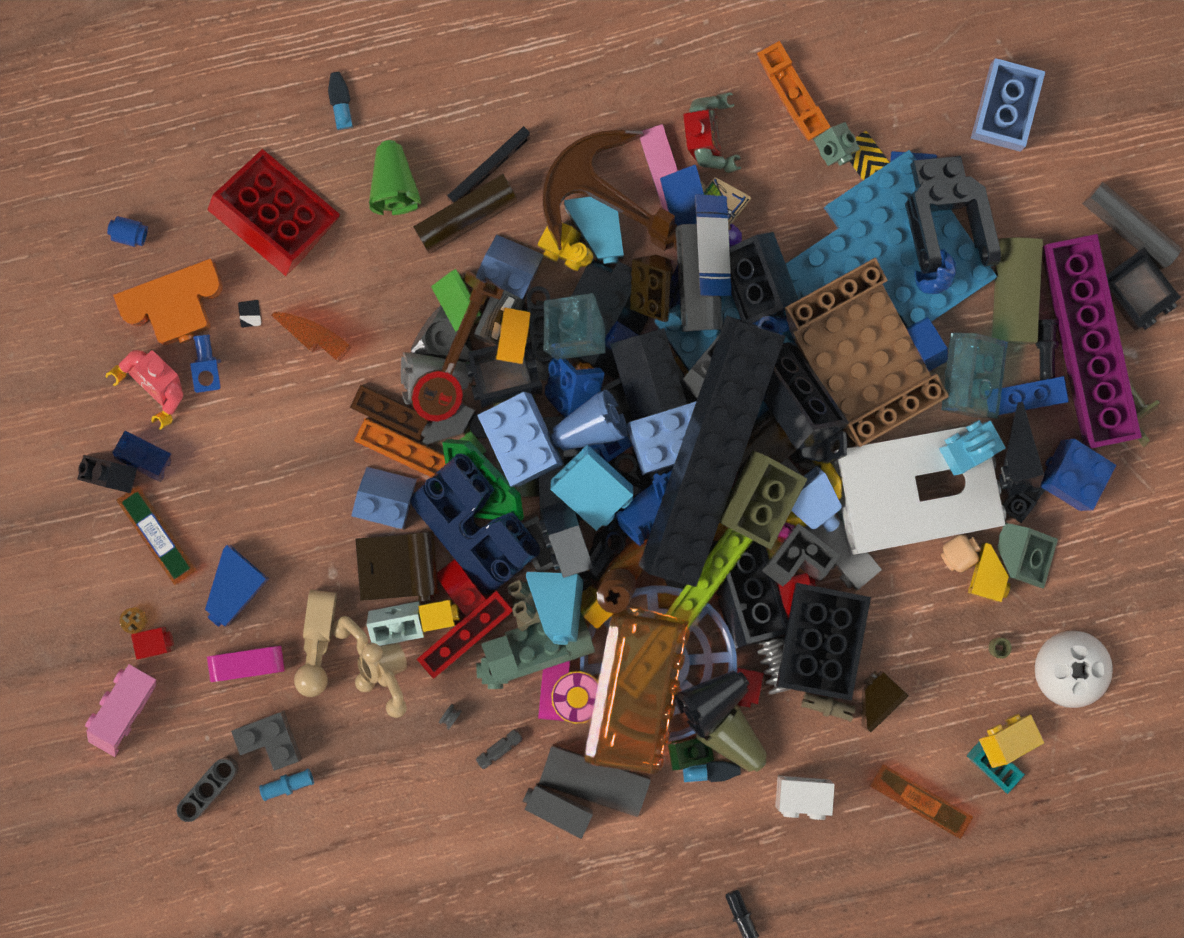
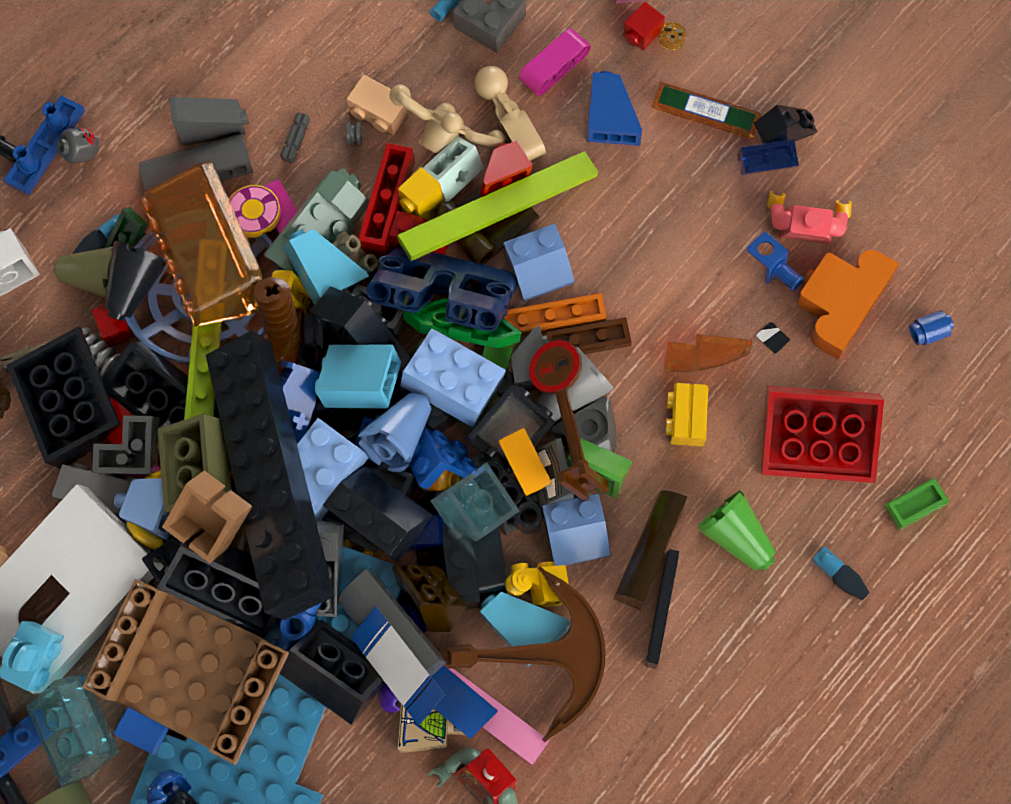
camera: 150 degrees right, 15 degrees down
(244, 112) = (916, 504): none -> bright green tile
(355, 594) = (505, 167): none -> slope
(361, 296) = (688, 414): none -> yellow brick
(382, 565) = (497, 206): none -> lime tile
(415, 729) = (372, 103): none -> light nougat brick
(678, 863) = (78, 145): none -> dark grey head
(704, 887) = (42, 148): none -> blue plate
(770, 433) = (207, 507): none -> medium nougat piece

